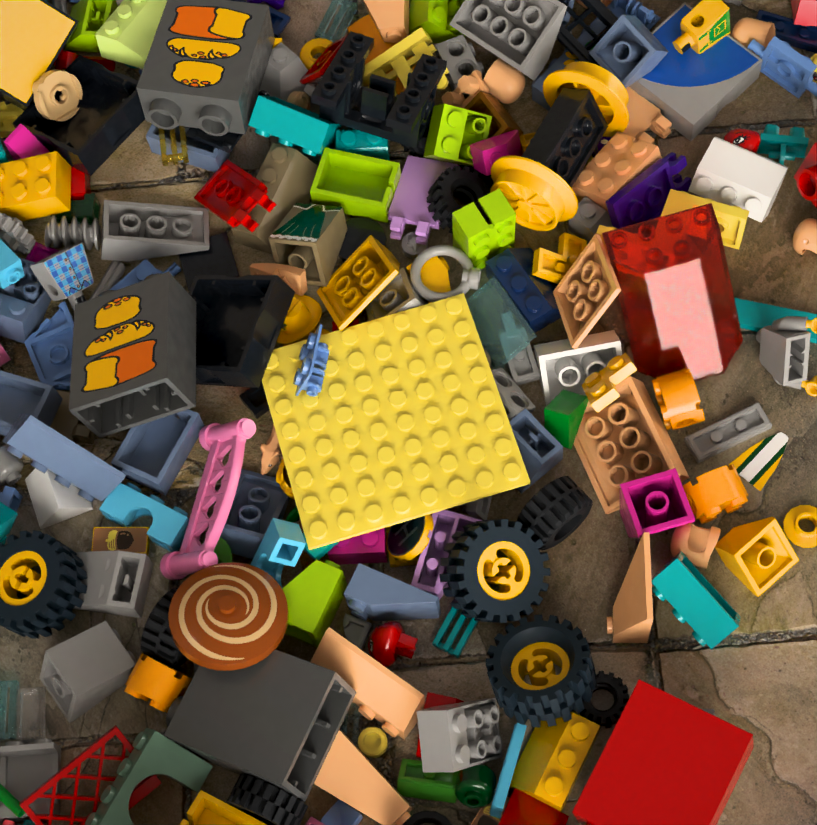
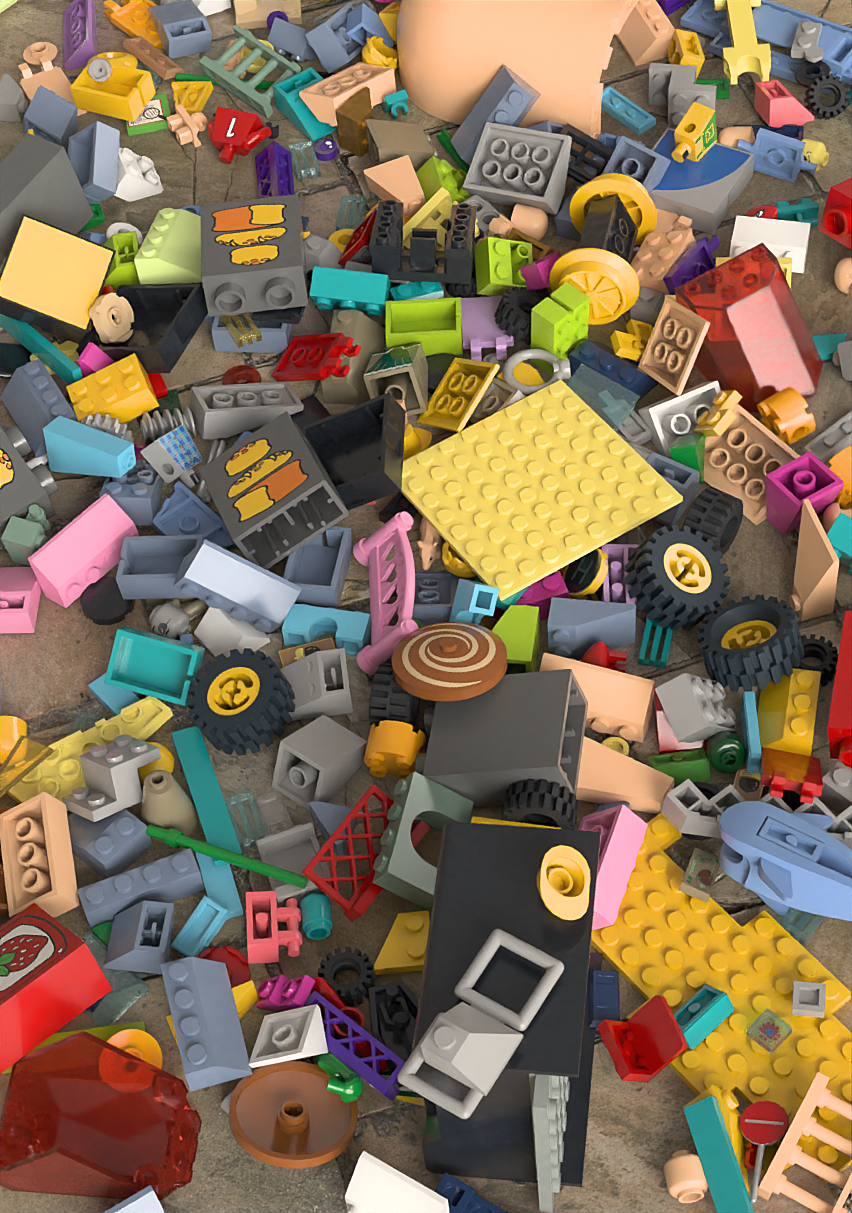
camera: 20 degrees left, 15 degrees down
(74, 742) = (327, 819): none -> sand blue slope
(162, 185) = (241, 372): none -> clear red piece
(314, 358) = (446, 454): medium blue hinge -> none

